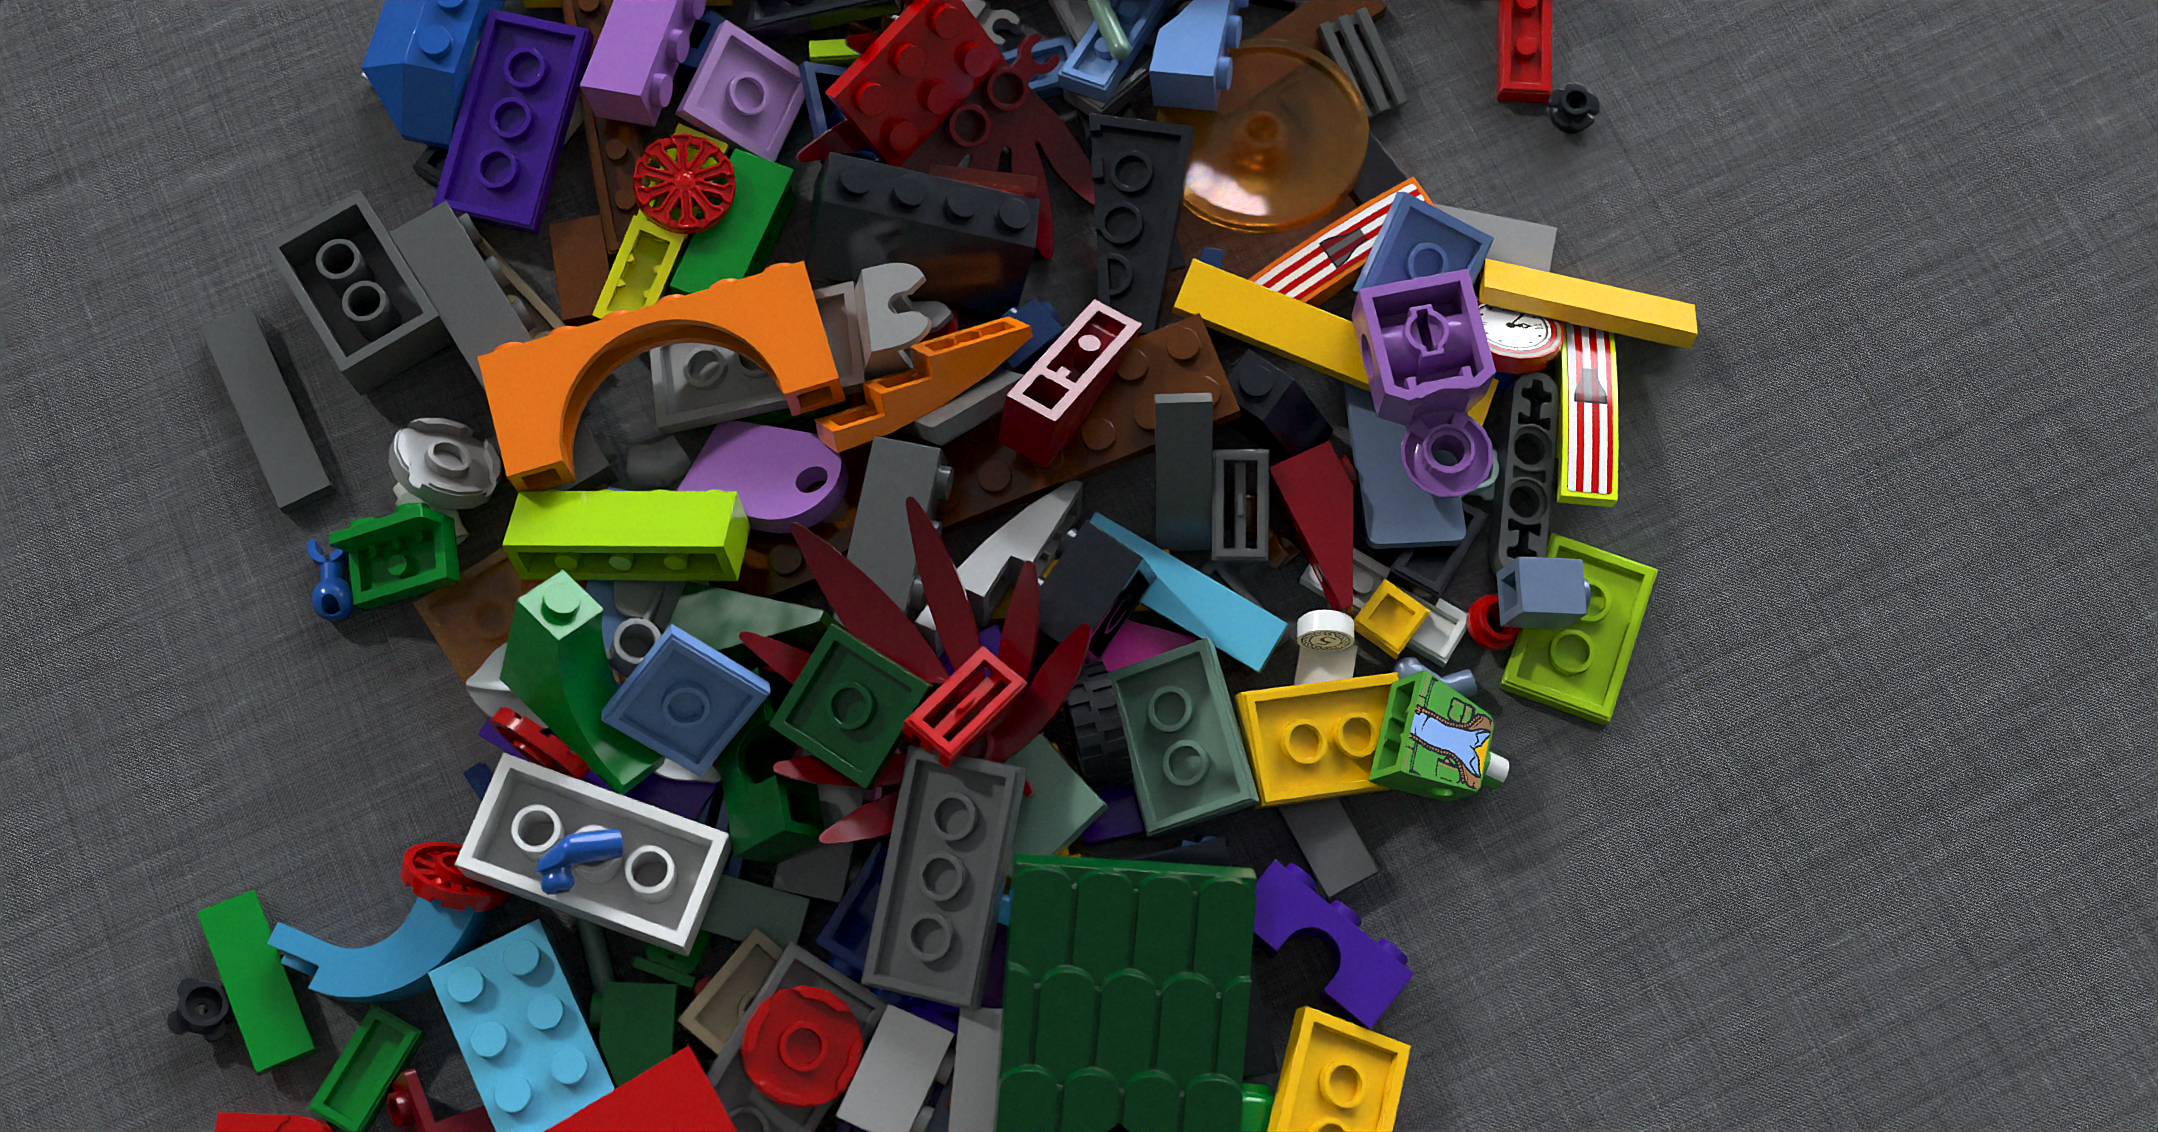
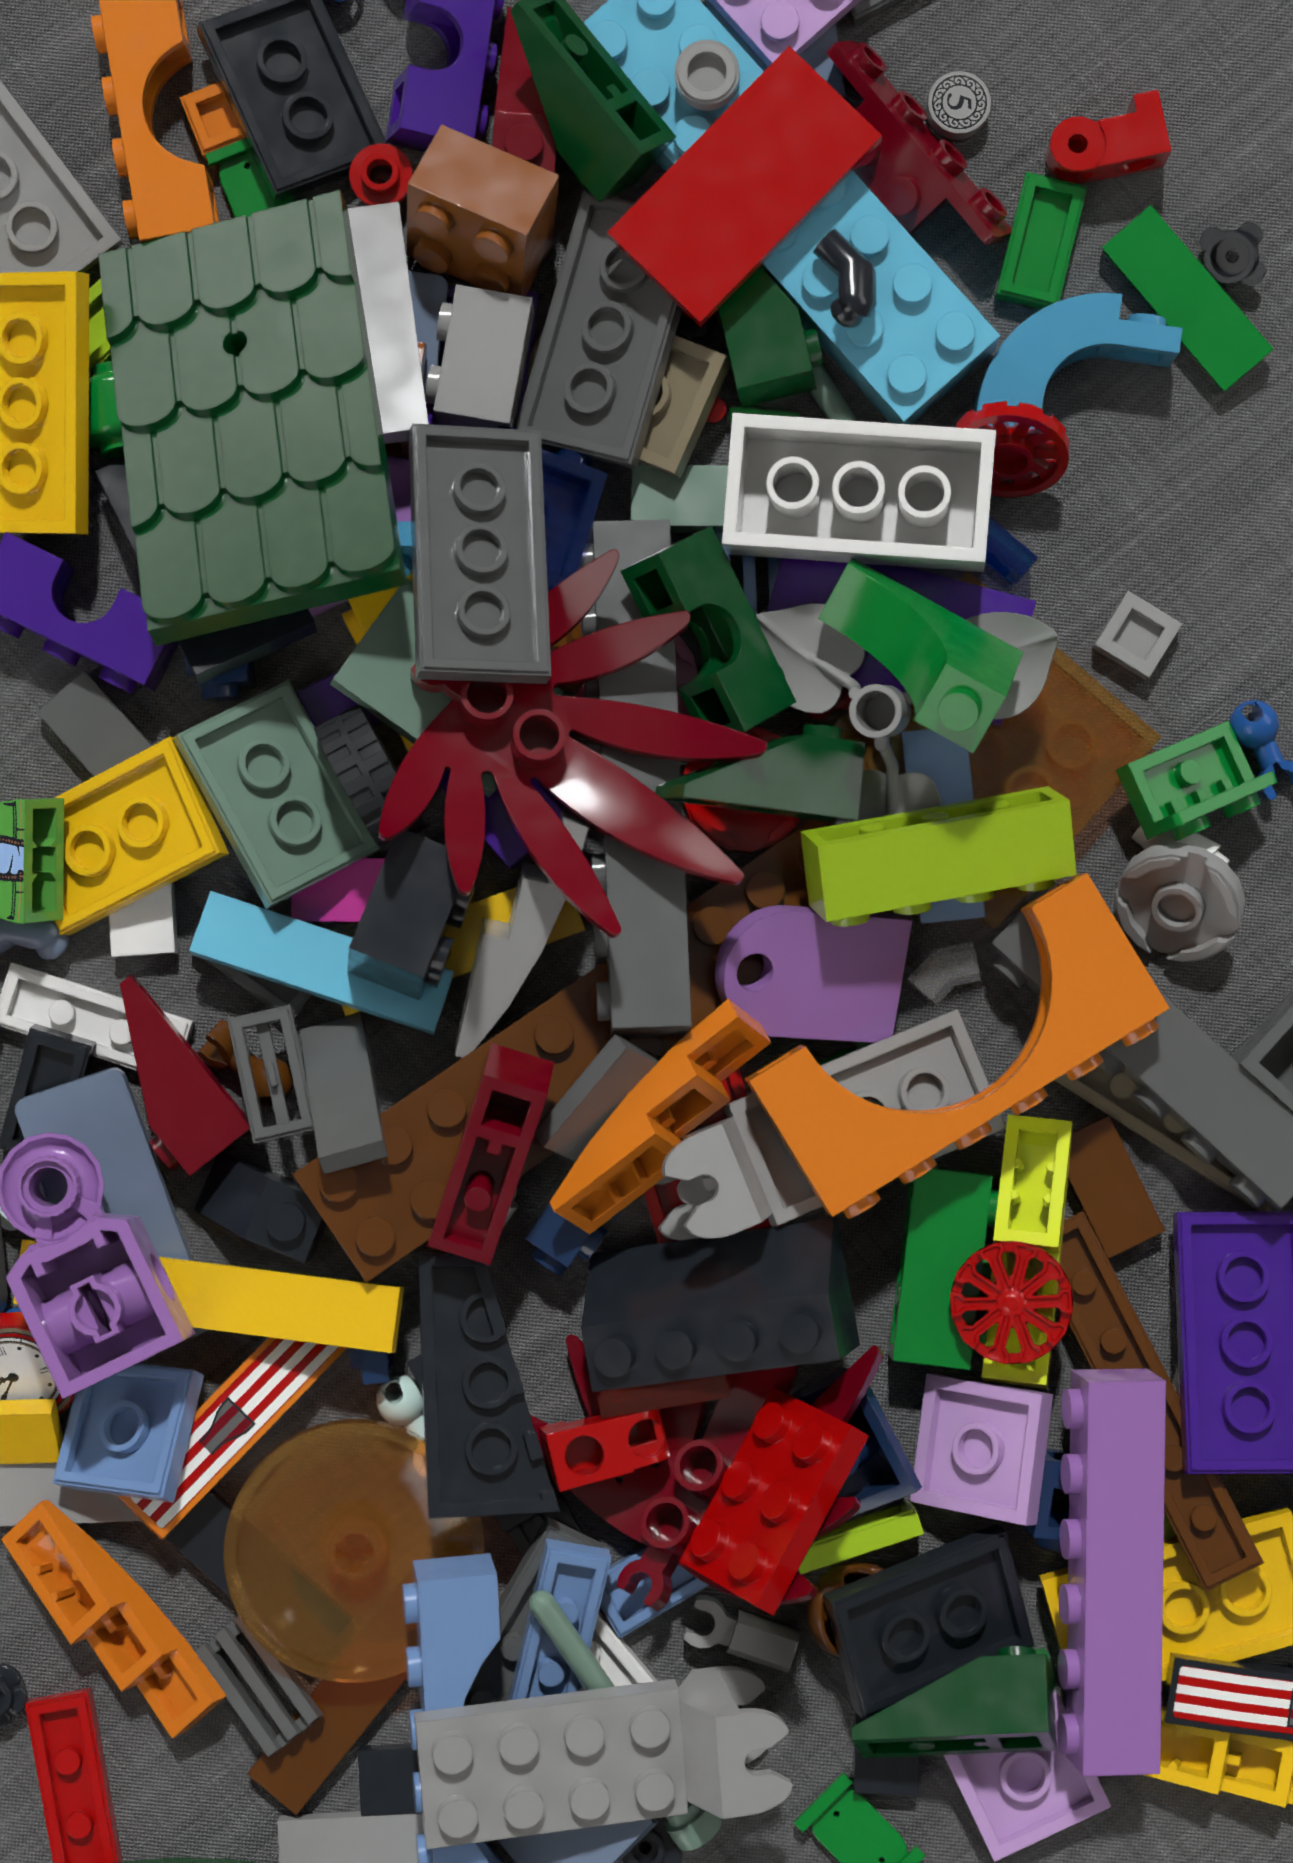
camera: 170 degrees right, 15 degrees up
(405, 700) = (1137, 635): none -> light grey tile
(535, 746) = (954, 586): red wheel -> none
(536, 1050) = (855, 279): none -> black arm
(571, 852) = (869, 472): blue arm -> none
(685, 700) = (807, 667): medium blue tile -> none
(802, 1047) = (588, 360): red tile -> none
(850, 706) = (624, 702): dark green plate -> none
(934, 738) = (524, 679): red tile -> none
(1054, 155) = (602, 1448): none -> red leg
(1195, 236) = (402, 1408): none -> light aqua arm
(1325, 631) = (146, 955): white tile -> none
(1390, 619) = (80, 993): yellow tile -> none
(1473, 148) = (105, 1605): none -> orange slope

